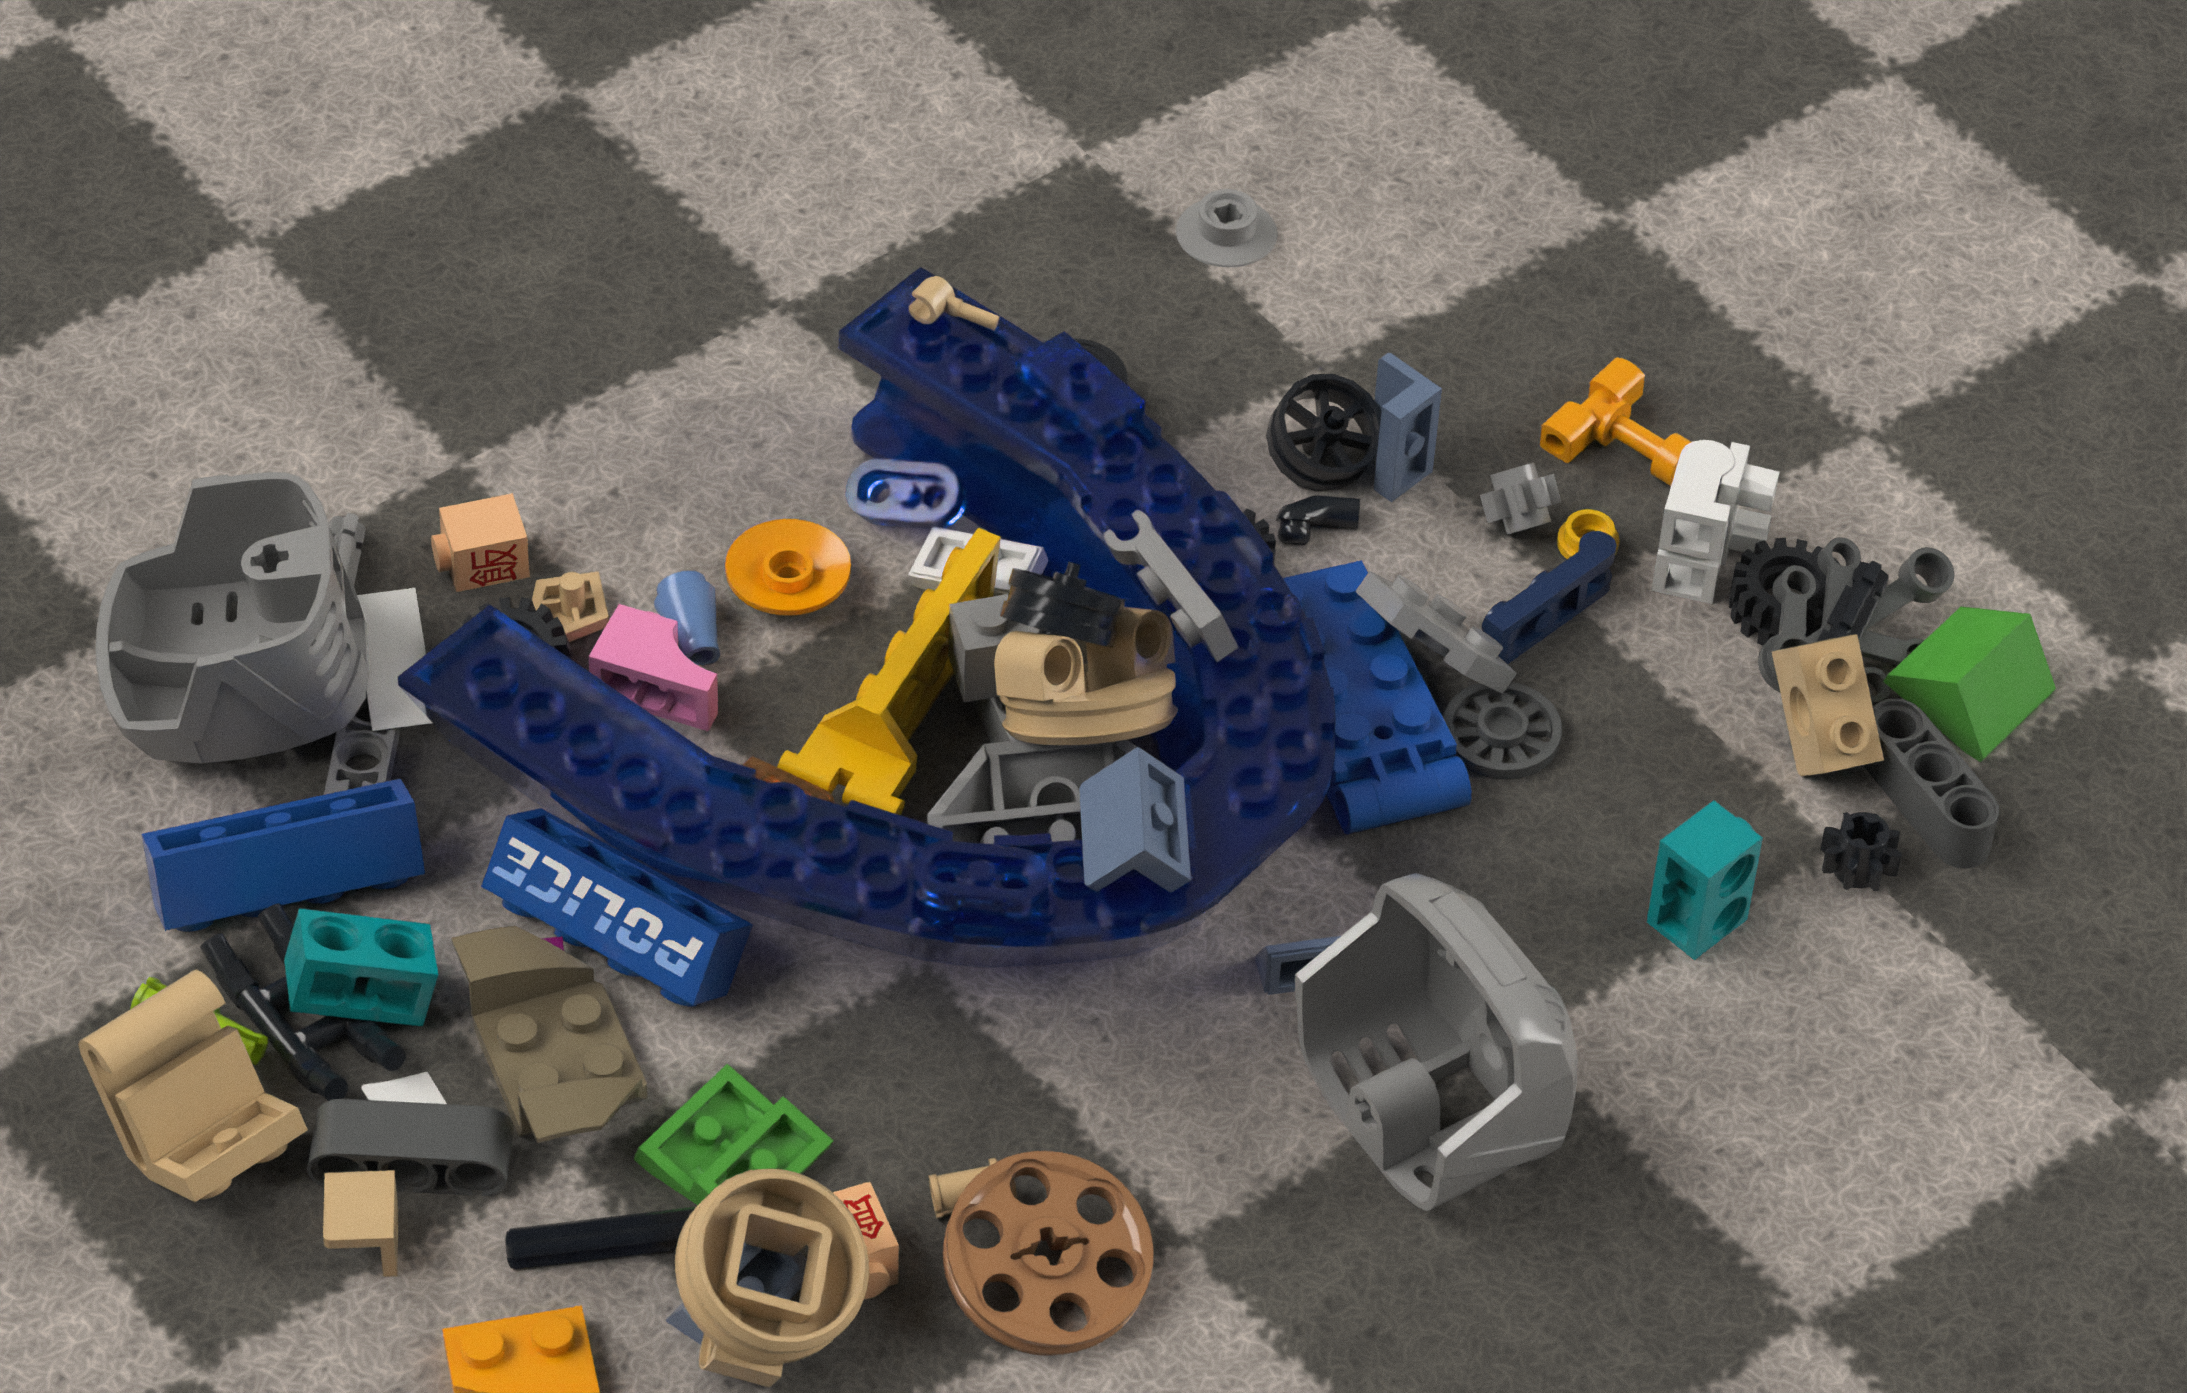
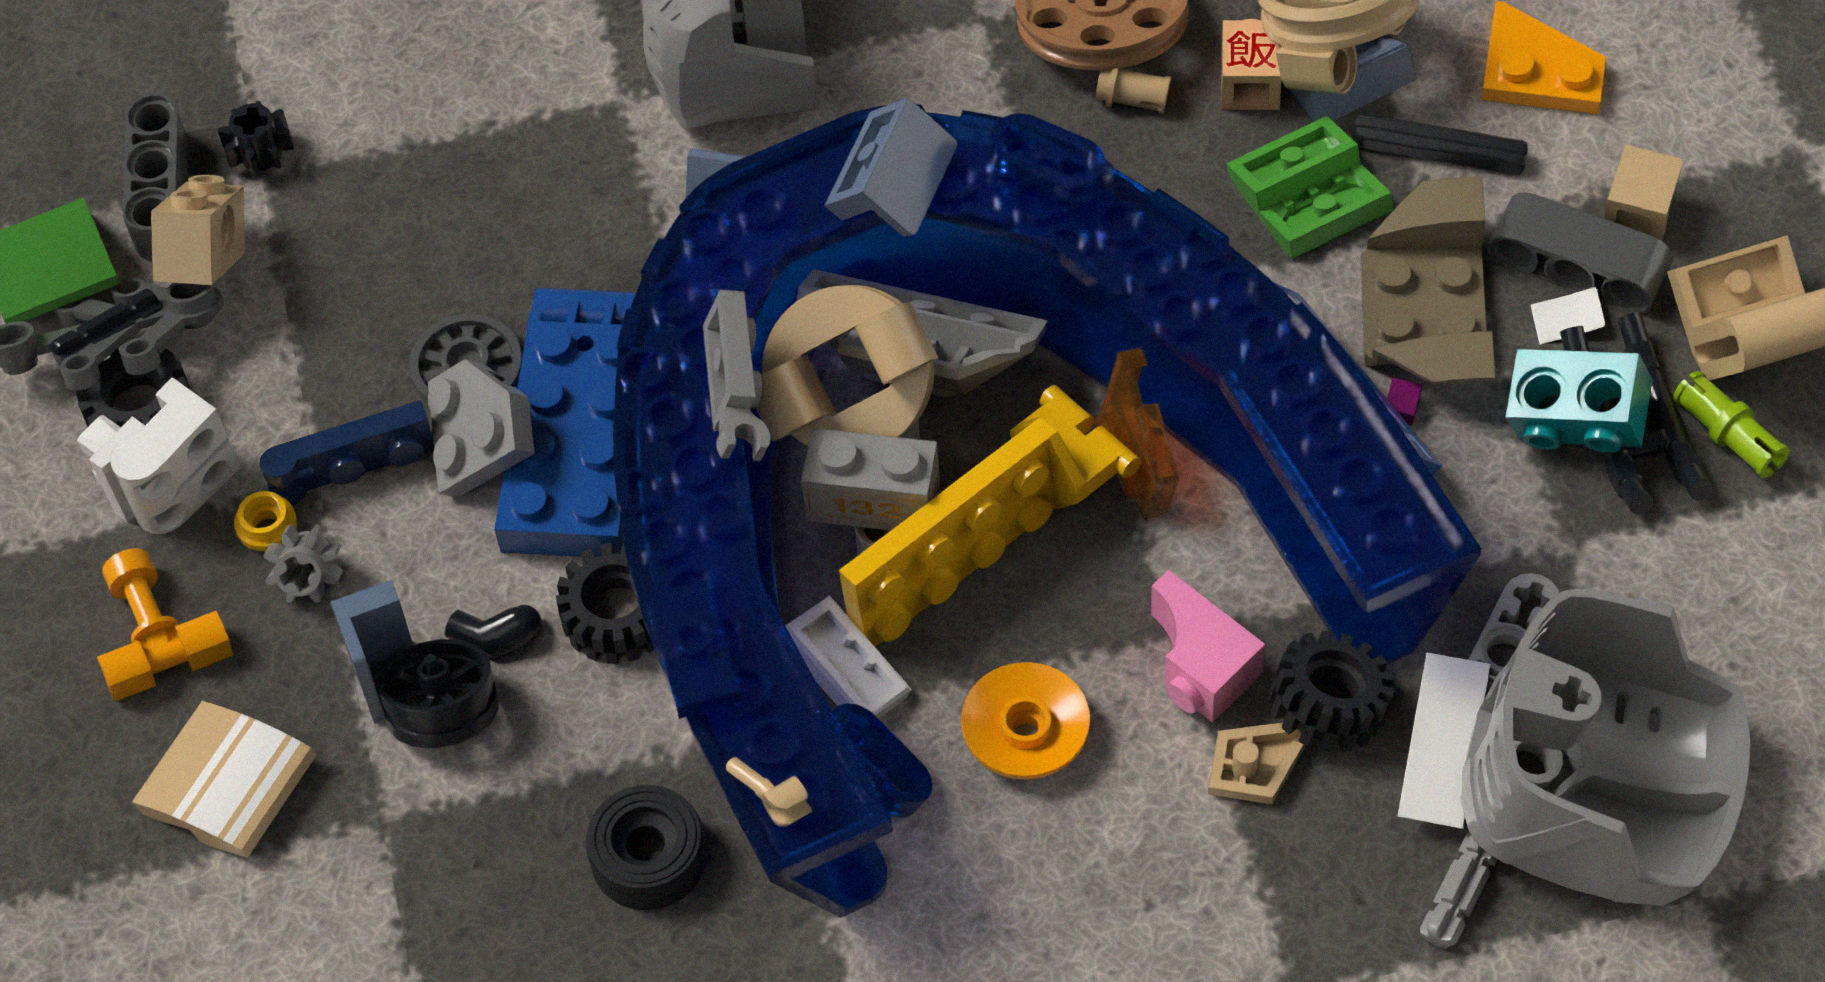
camera: 150 degrees left, 10 degrees up
(283, 855) = (1617, 537): blue brick -> none
(482, 543) = (1314, 848): light nougat brick -> none
(692, 603) = (1140, 706): medium blue cone -> none
(1062, 606) = (846, 381): black wheel -> none
(1472, 340) = (224, 778): none -> tan slope
(1704, 879) = (410, 117): teal brick -> none

